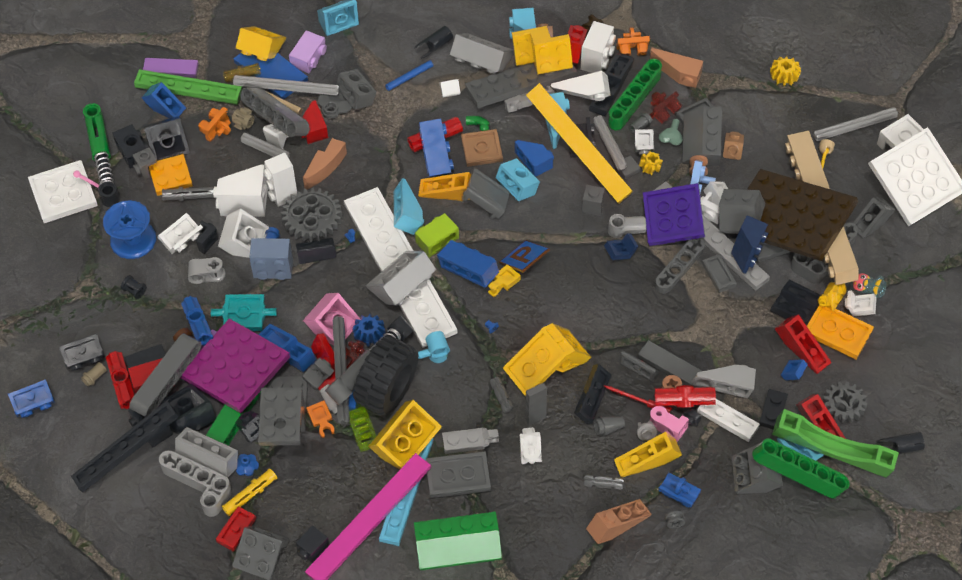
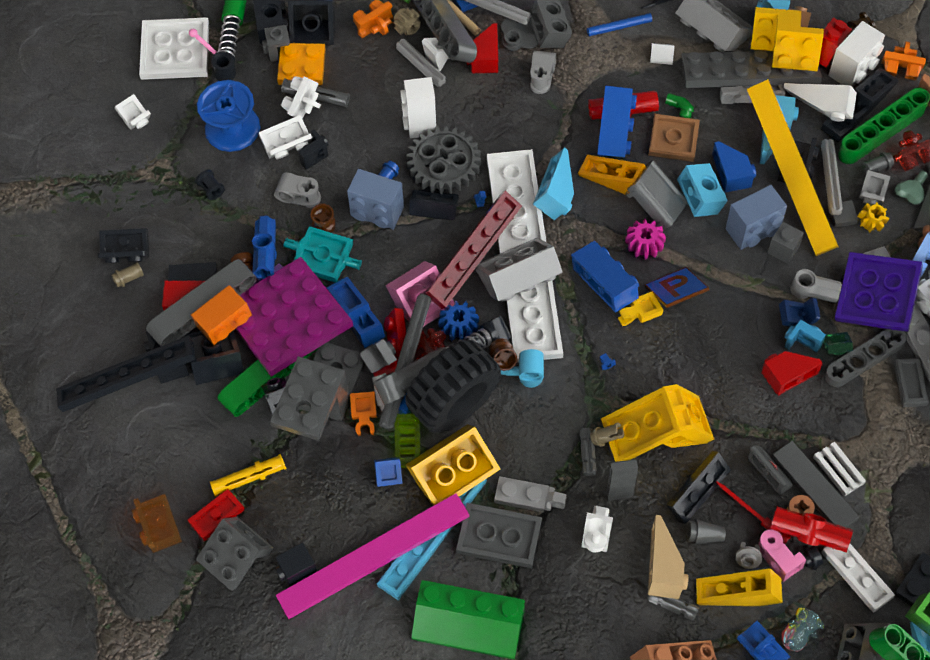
camera: 20 degrees right, 5 degrees up
(31, 398) = (47, 282): bracket -> none
(49, 250) = (133, 113): none -> white bracket
(119, 371) = (154, 280): red piece -> none
(174, 466) = (191, 436): light grey beam -> none
(185, 201) = (304, 98): none -> white hips
(186, 378) = (221, 315): none -> orange brick
(192, 548) = (157, 523): none -> clear orange bracket
(206, 451) = (215, 412): light grey brick -> none
(234, 284) = (323, 217): none -> reddish brown wheel
(238, 231) = (352, 153): white slope -> none
(242, 191) = (371, 111): white slope -> none
(246, 465) = (261, 442): blue plant -> none
(324, 163) = (481, 102): nougat slope -> none
(357, 455) = (388, 471): none -> blue plate
(362, 126) = (542, 71): none -> light grey piece
(362, 273) = (473, 250): none -> plate
(416, 341) = (507, 358): none -> reddish brown wheel
(436, 235) = (580, 228): lime brick -> none
(488, 228) = (645, 239): none -> dark pink gear
(511, 377) = (603, 435): none -> dark tan pin
(565, 187) = (755, 217): none -> sand blue brick
(588, 453) = (666, 564): none -> tan slope
(628, 290) = (789, 370): none -> red slope
(631, 261) = (806, 334): none -> dark azure bracket
(657, 261) = (838, 343): none -> clear green plate
(691, 347) = (834, 448): none -> white tile
(701, 469) = (798, 631): none -> clear light blue animal
(733, 380) = (879, 526): light grey slope -> none

